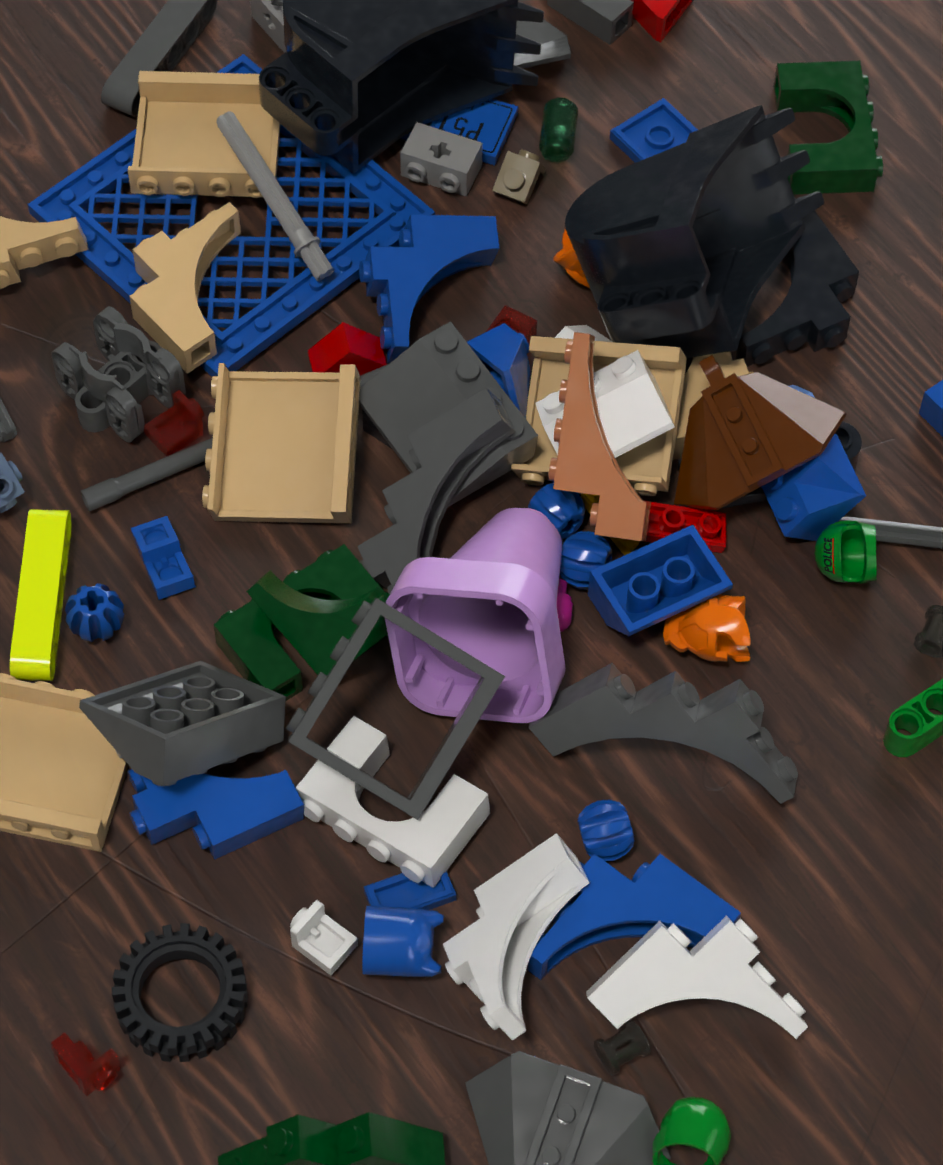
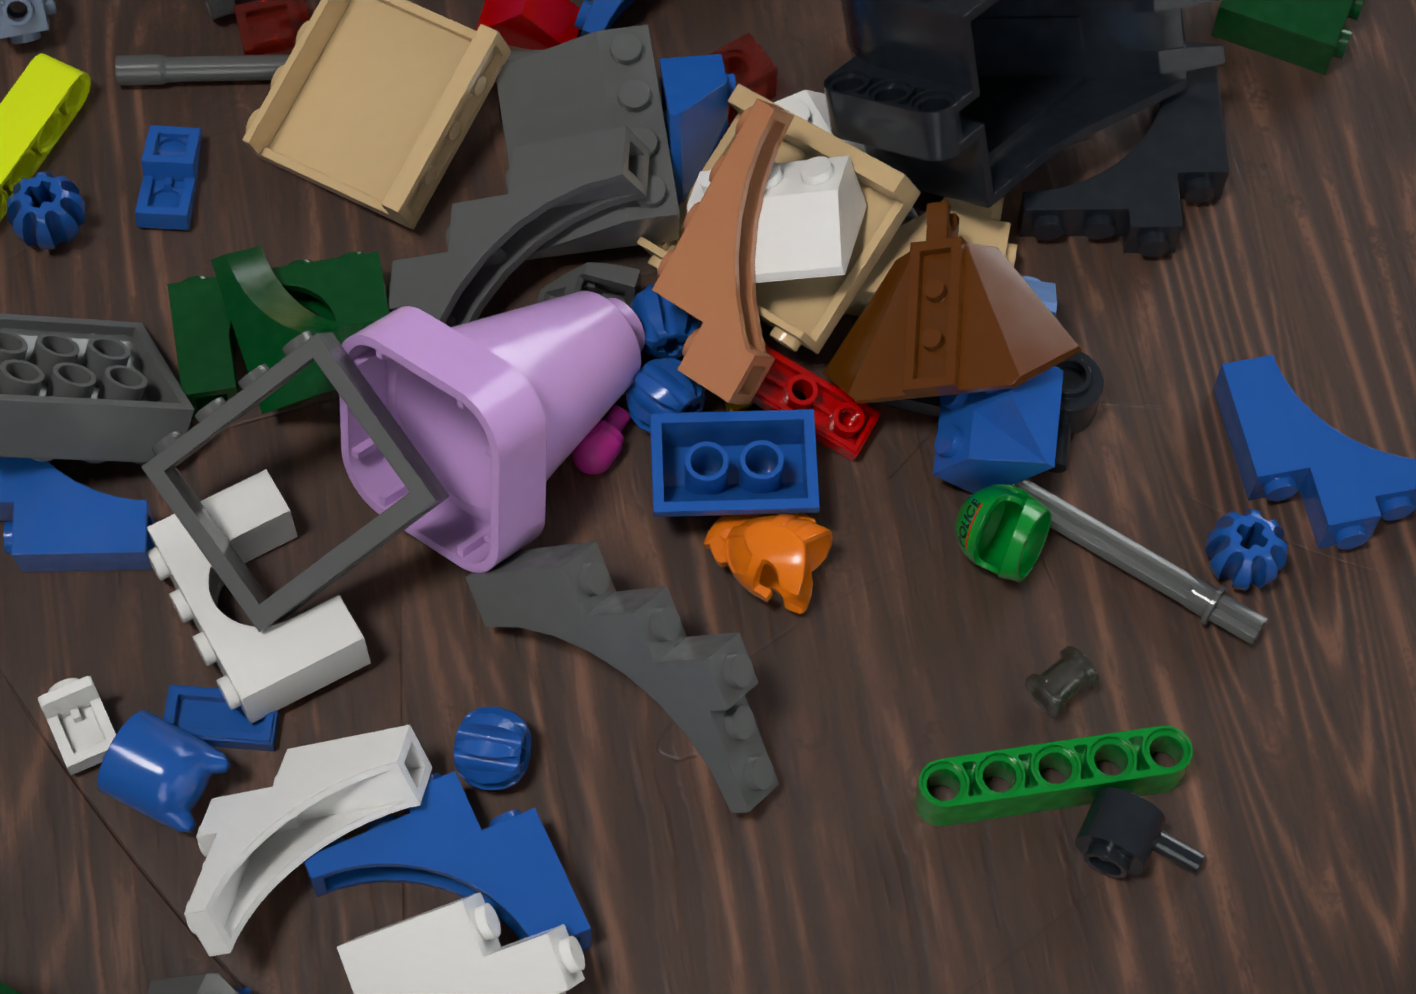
camera: 25 degrees right, 5 degrees up
(489, 506) = (601, 278): none -> dark grey slope

